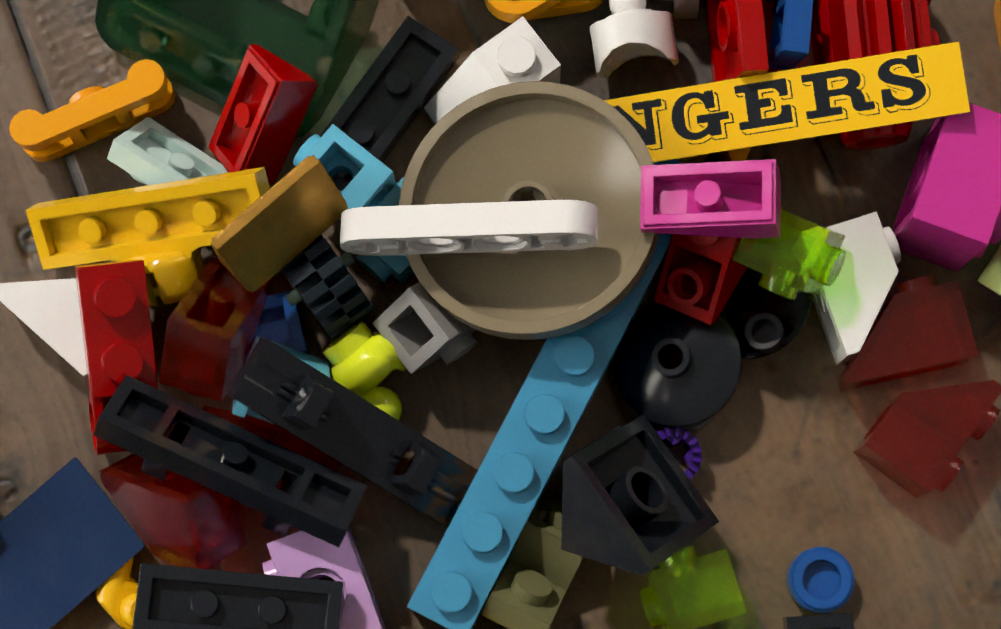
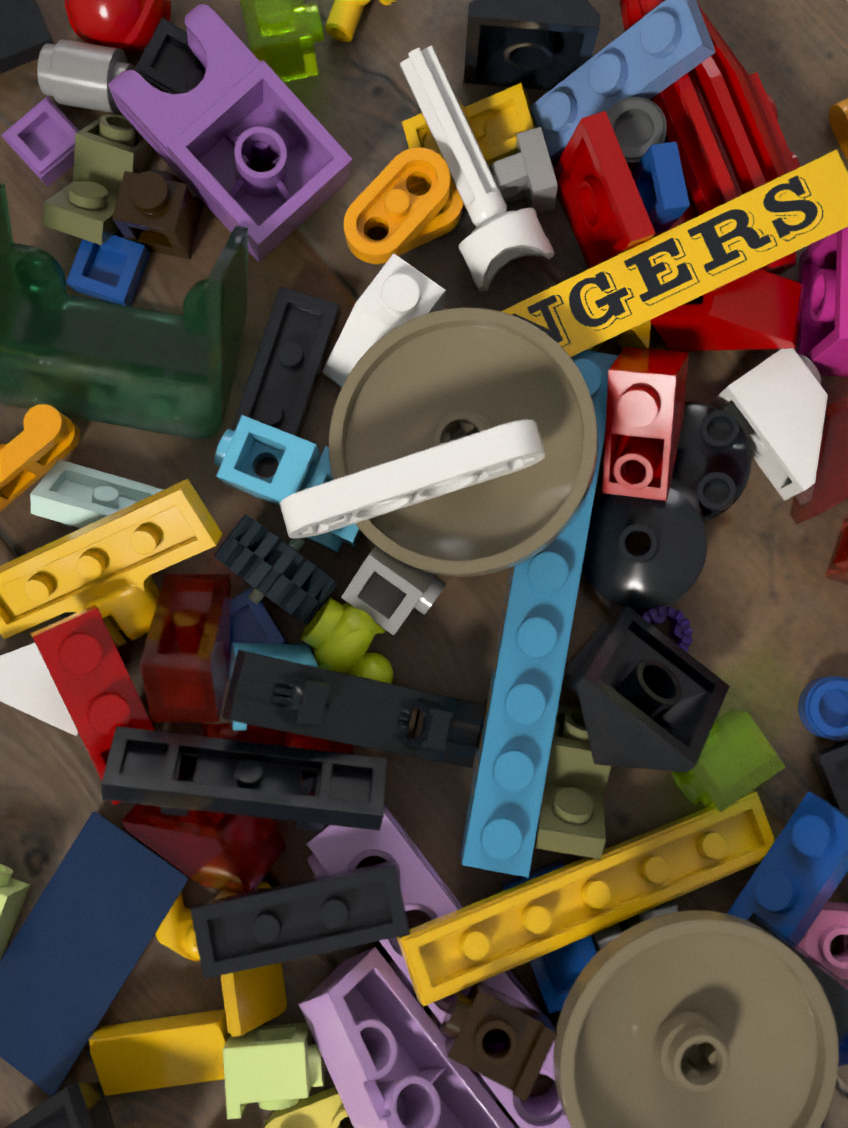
camera: 20 degrees left, 5 degrees up
(262, 113) = (168, 424): red slope -> none
(279, 224) = (222, 532): pearl gold slope -> none
(712, 199) = (644, 379): dark pink slope -> none
(798, 260) = (725, 407): clear neon green brick -> none
(837, 169) = (741, 315): none -> red slope

